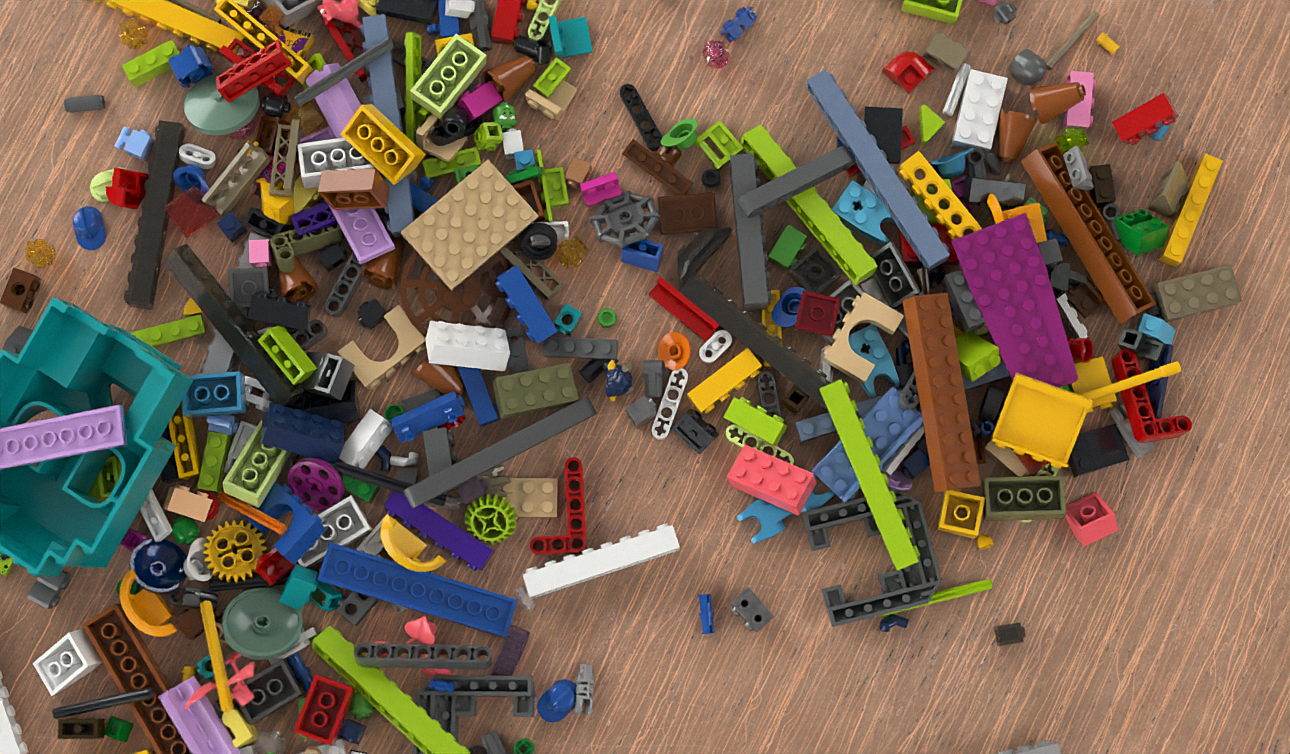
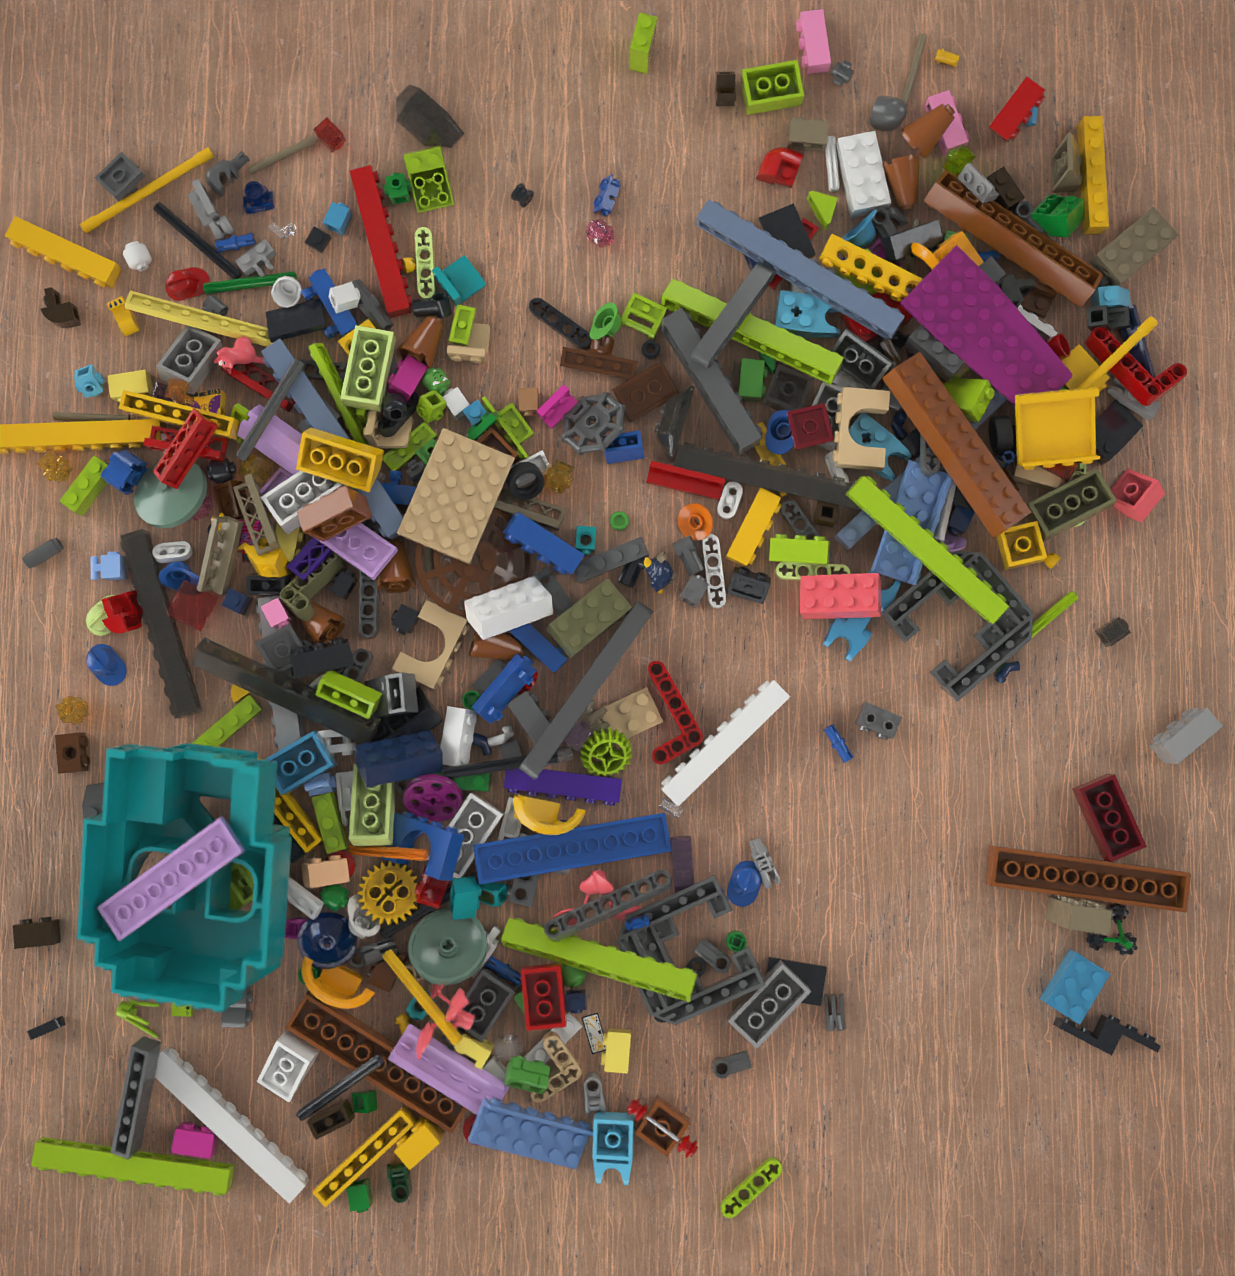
camera: 25 degrees left, 5 degrees up
(446, 185) = (415, 470): none -> dark grey gear
(811, 239) = (769, 363): none -> green slope

